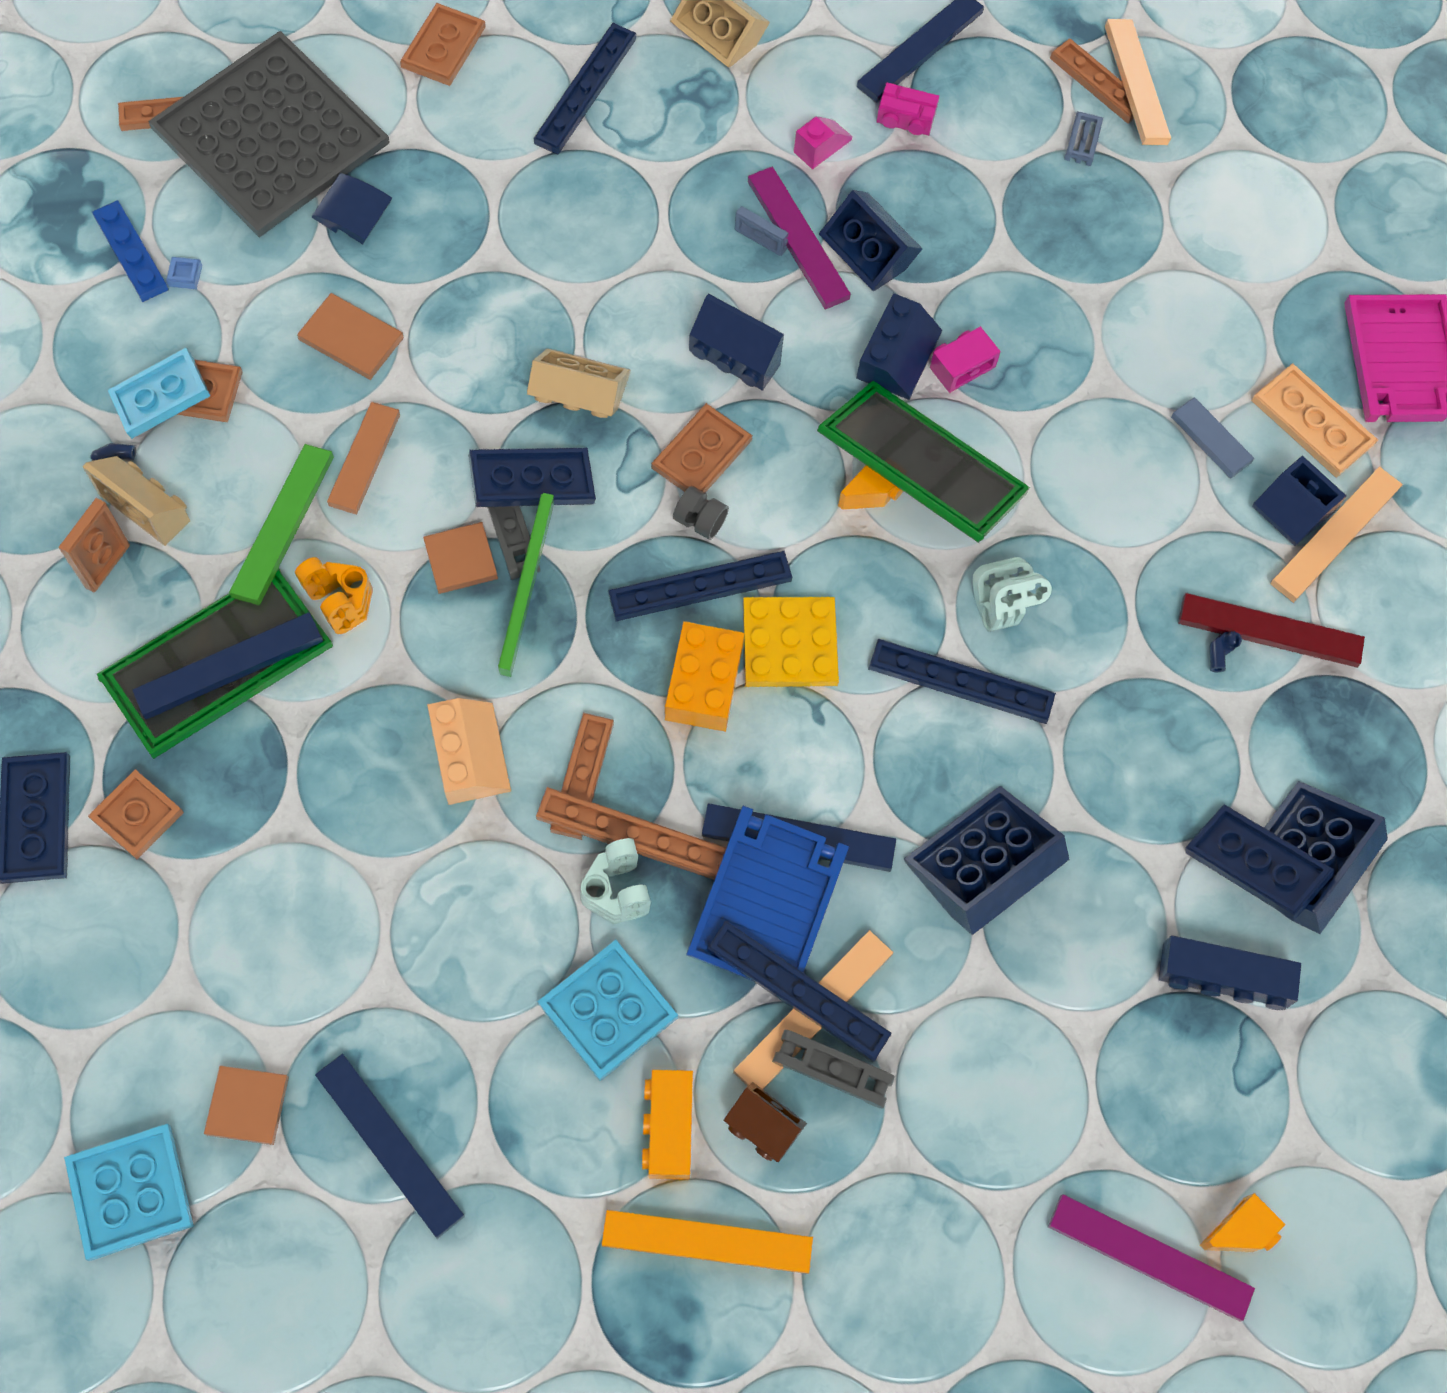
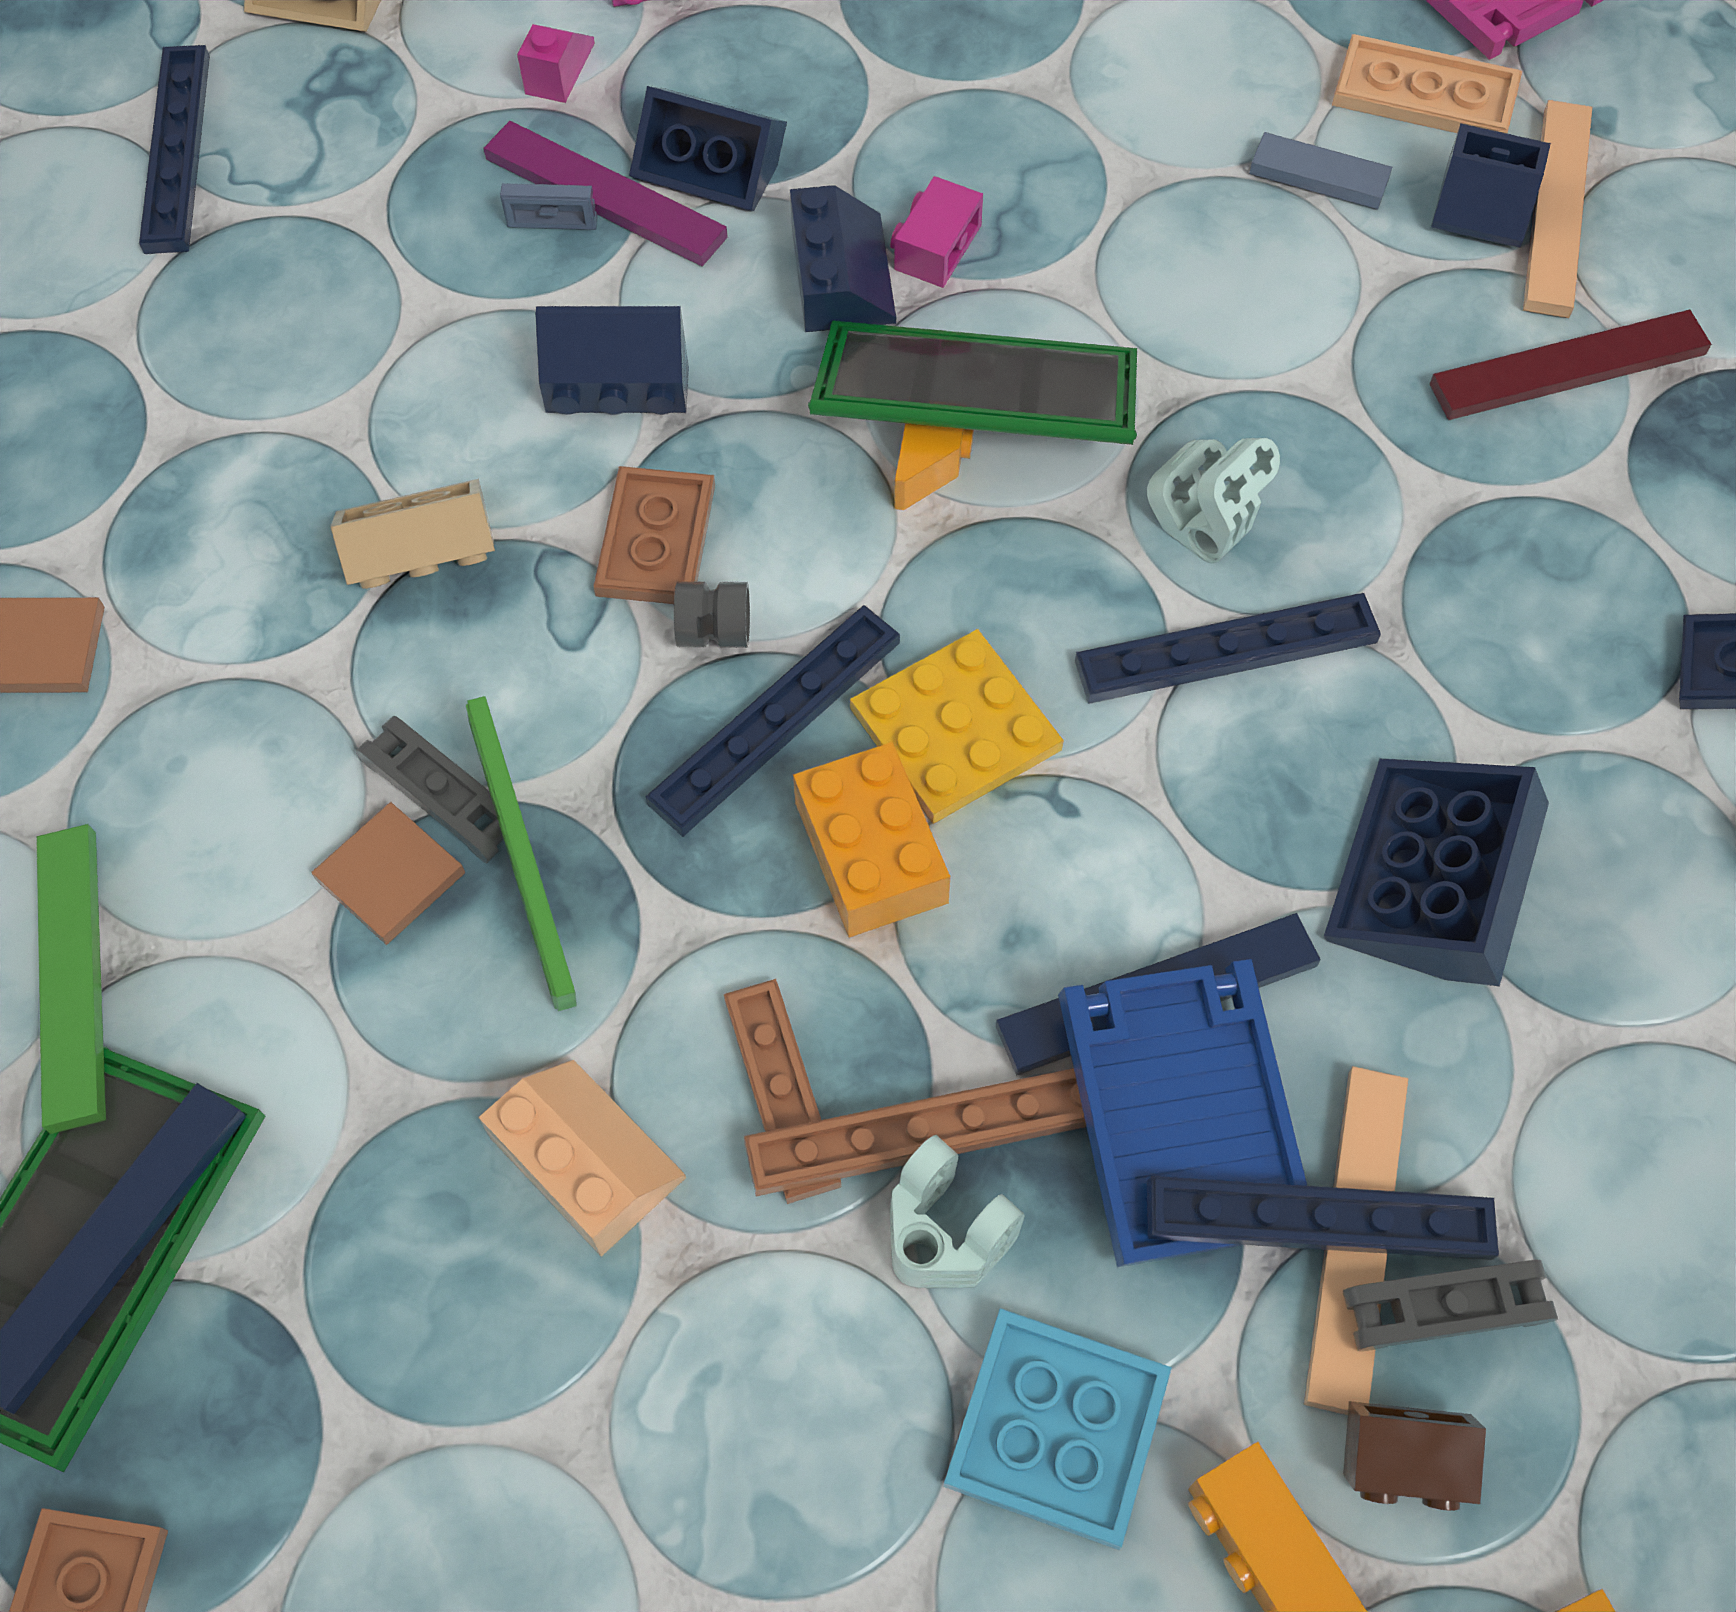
camera: 25 degrees left, 5 degrees down
(341, 609) = (250, 1045): light orange piece -> none
(363, 458) = (145, 809): nougat tile -> none
(522, 475) = (424, 697): dark blue tile -> none
(1220, 648) = (1526, 420): dark blue arm -> none

